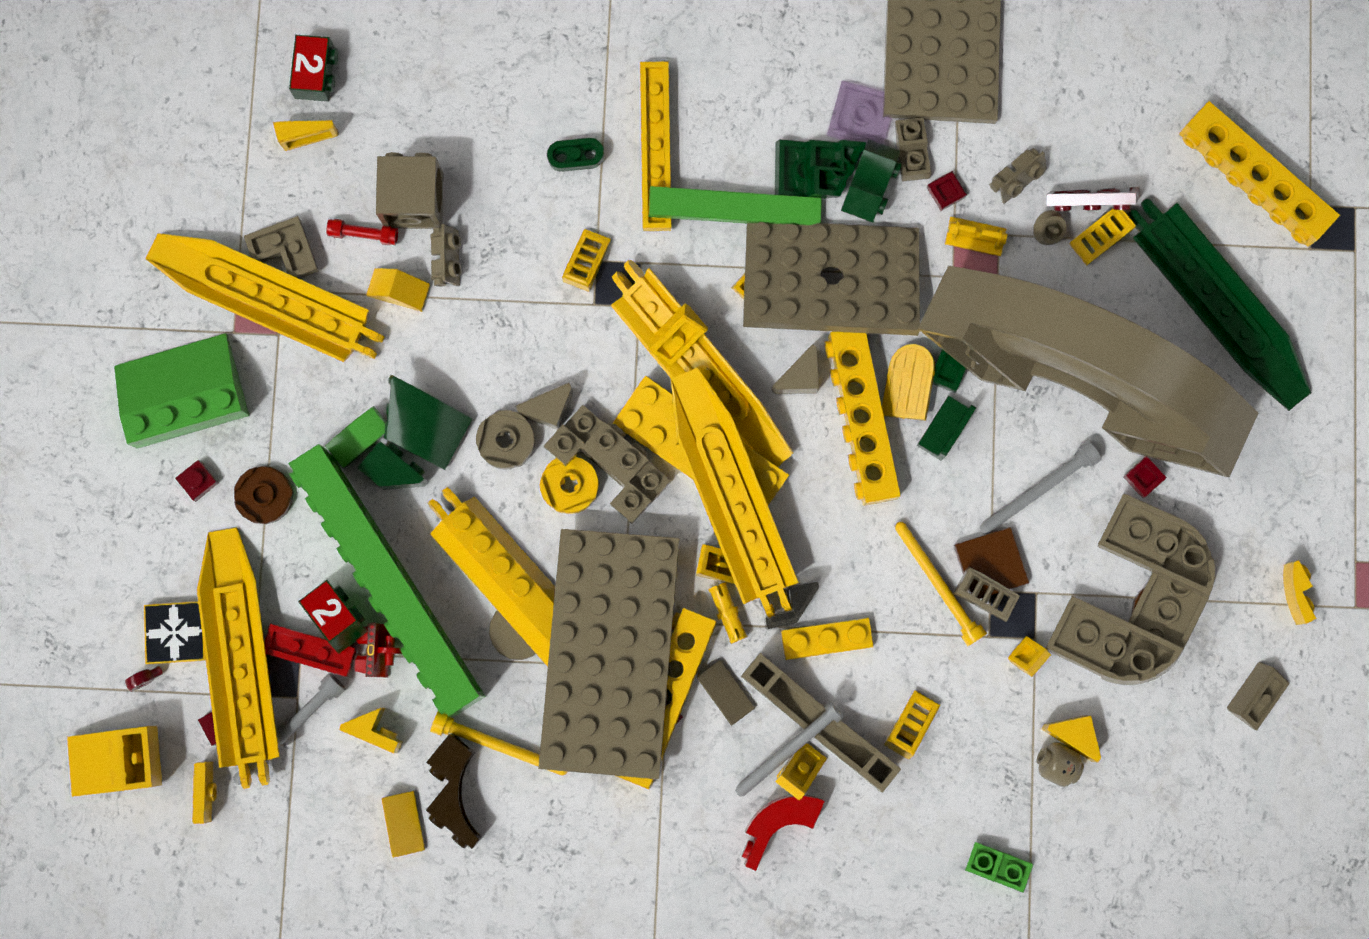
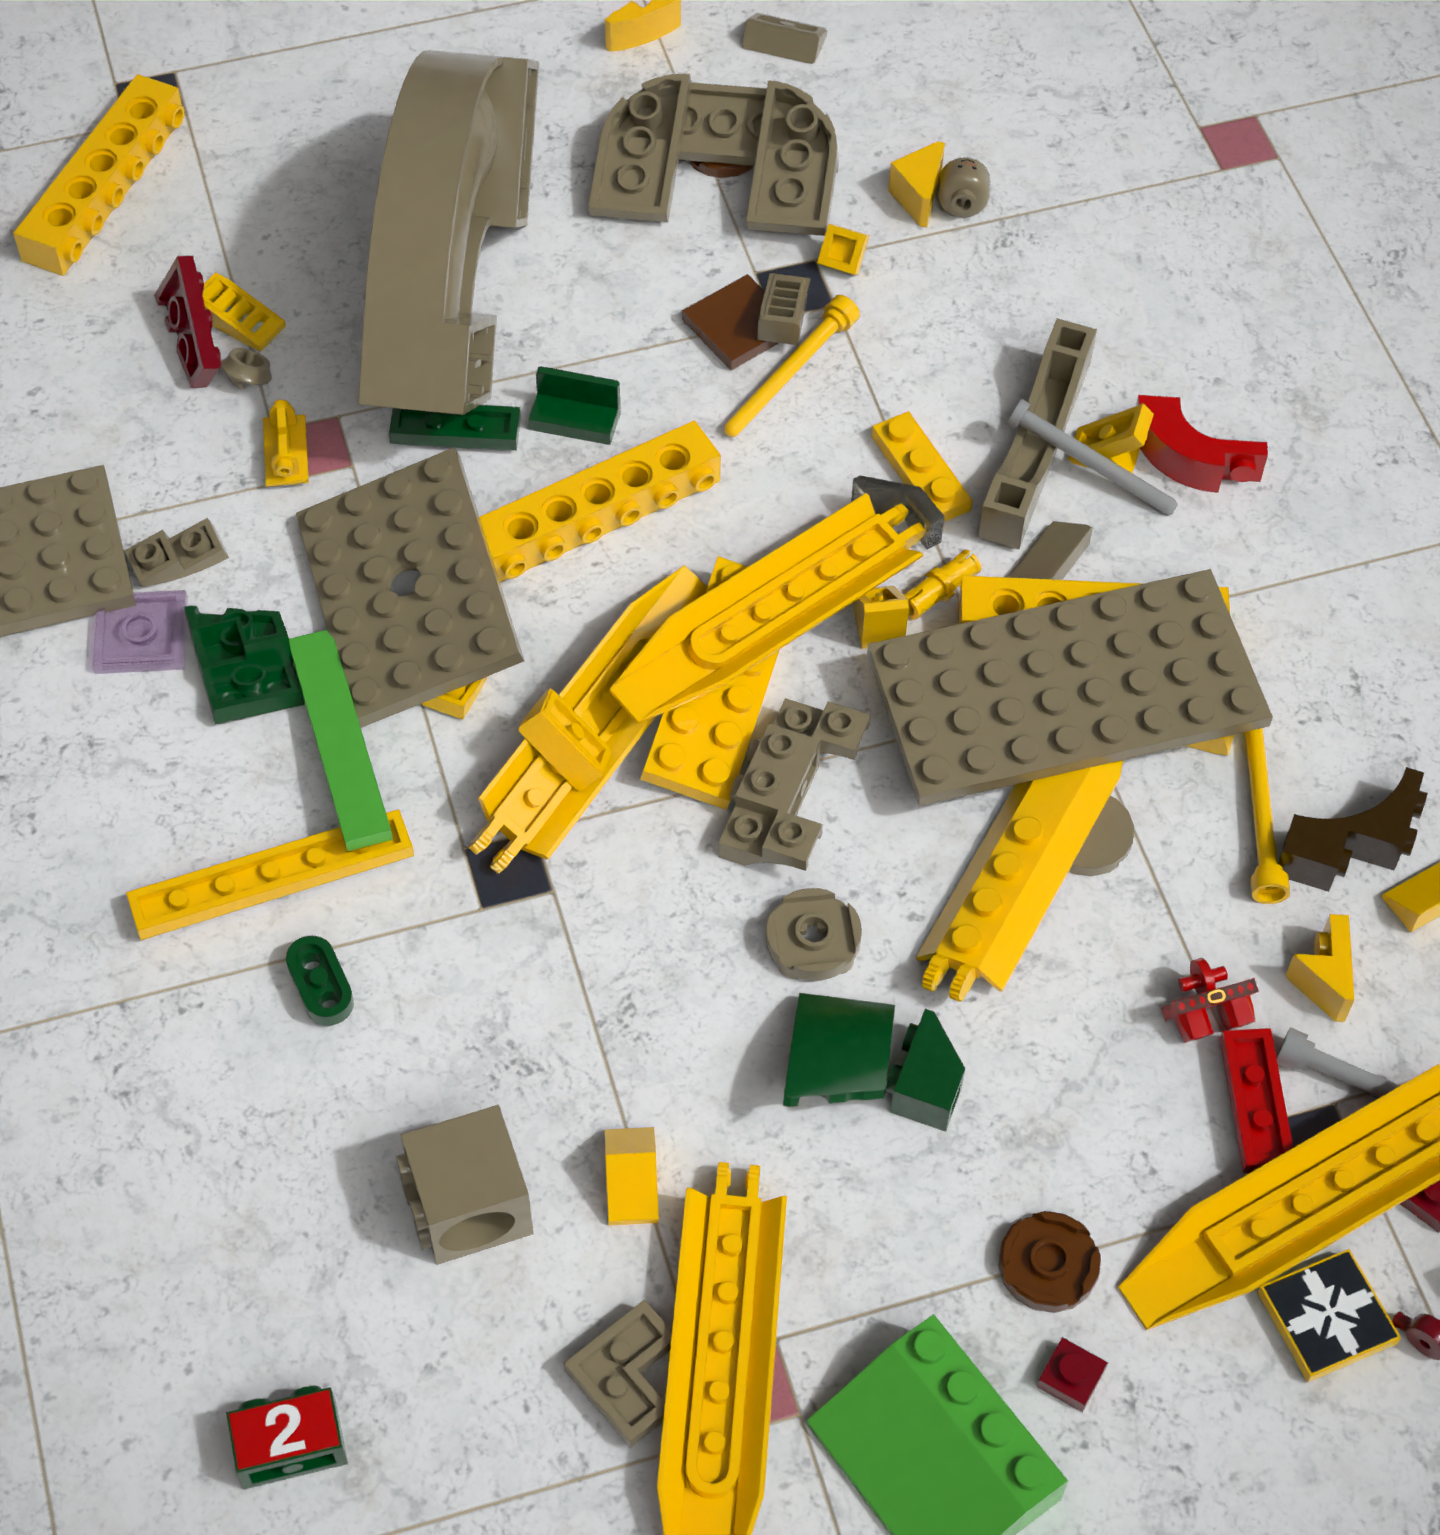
camera: 110 degrees left, 25 degrees down
(302, 133) = (418, 1423): yellow slope -> none
(332, 615) = (1191, 1068): brick -> none
(337, 229) = (560, 1296): red bar -> none
(357, 437) = (899, 1139): bright green slope -> none
(387, 581) = (1098, 1013): bright green brick -> none
(446, 243) = (571, 1108): dark tan hinge -> none
(547, 407) = (737, 887): dark tan slope -> none
(562, 500) = (870, 836): yellow plate -> none
(579, 281) = (502, 930): yellow slope -> none
(801, 376) = (562, 588): dark tan slope -> none
(871, 180) = (243, 579): dark green brick -> none
(901, 747) = (1002, 361): yellow slope -> none
(909, 383) = (524, 462): yellow window -> none
(946, 191) = (227, 500): dark red tile -> none
(999, 867) = (1119, 218): bright green slope -> none
(1028, 167) = (164, 412): dark tan hinge -> none
(1086, 456) = (552, 257): light grey piece -> none
(1144, 477) = (557, 194): dark red plate -> none
(1222, 301) = (286, 172): dark green hinge -> none

